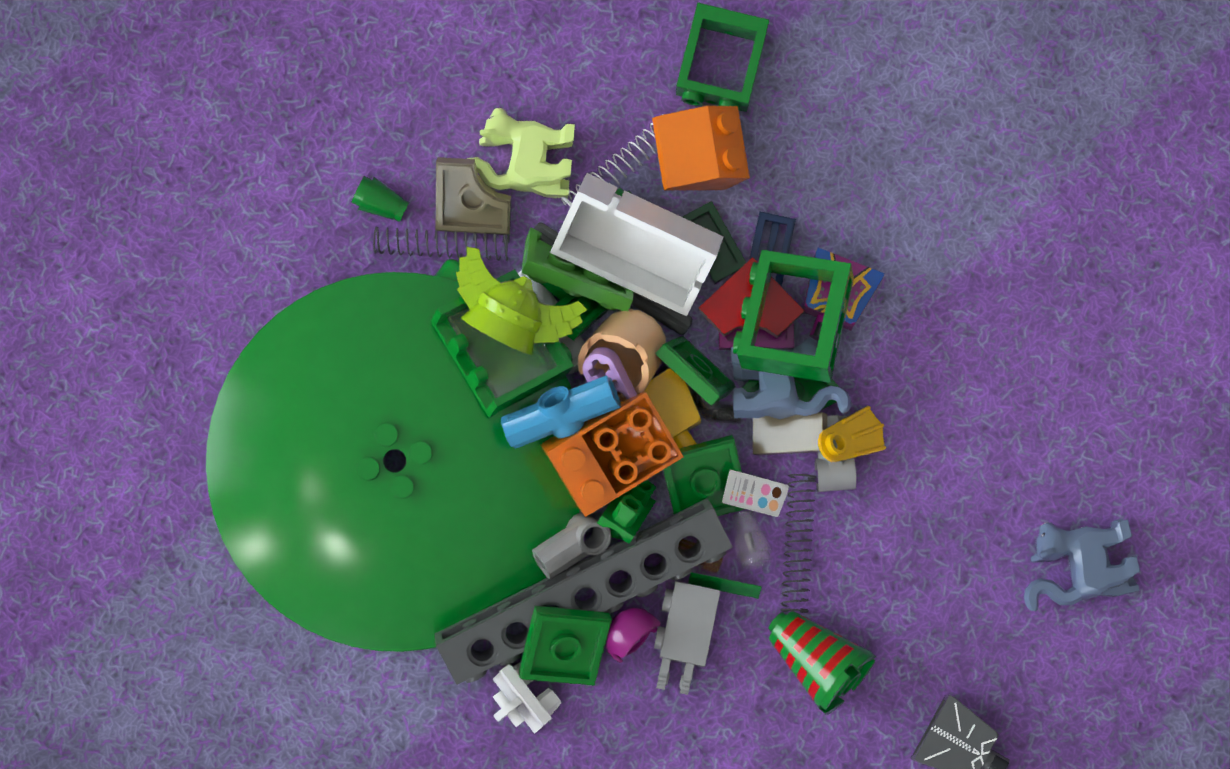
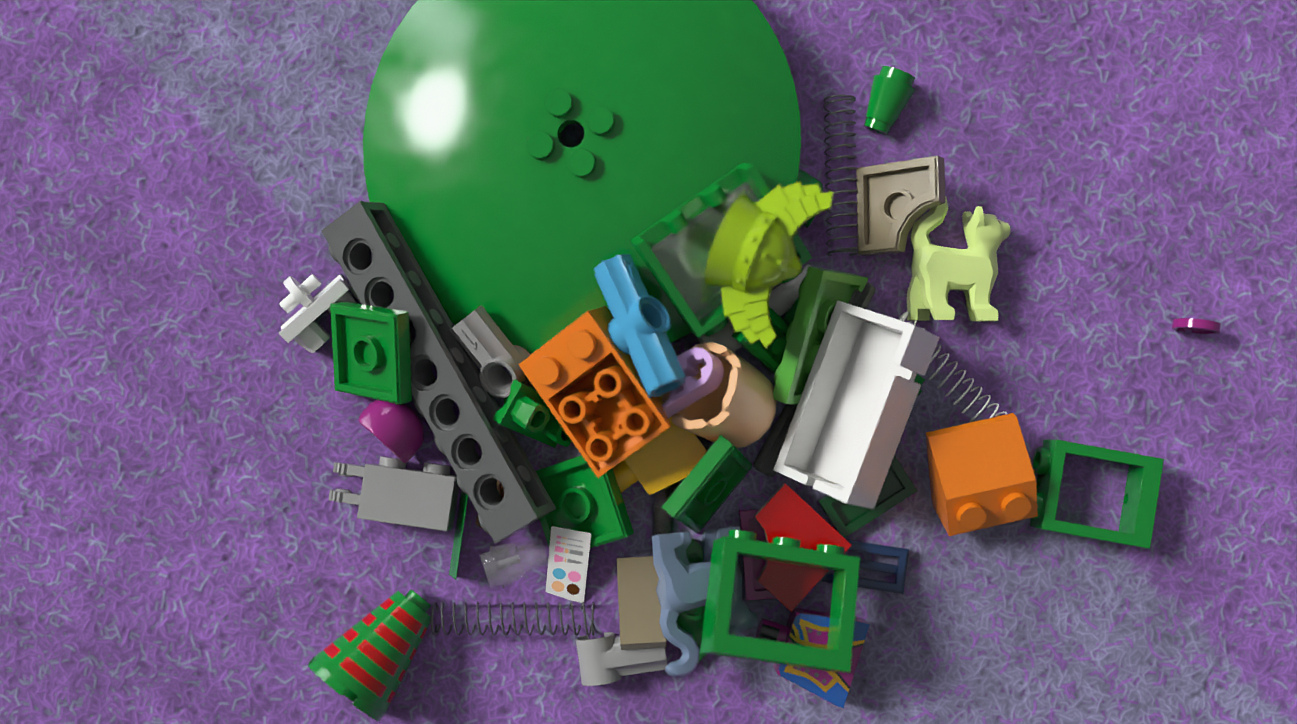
camera: 85 degrees right, 5 degrees up
(855, 436) = (643, 679): yellow piece -> none

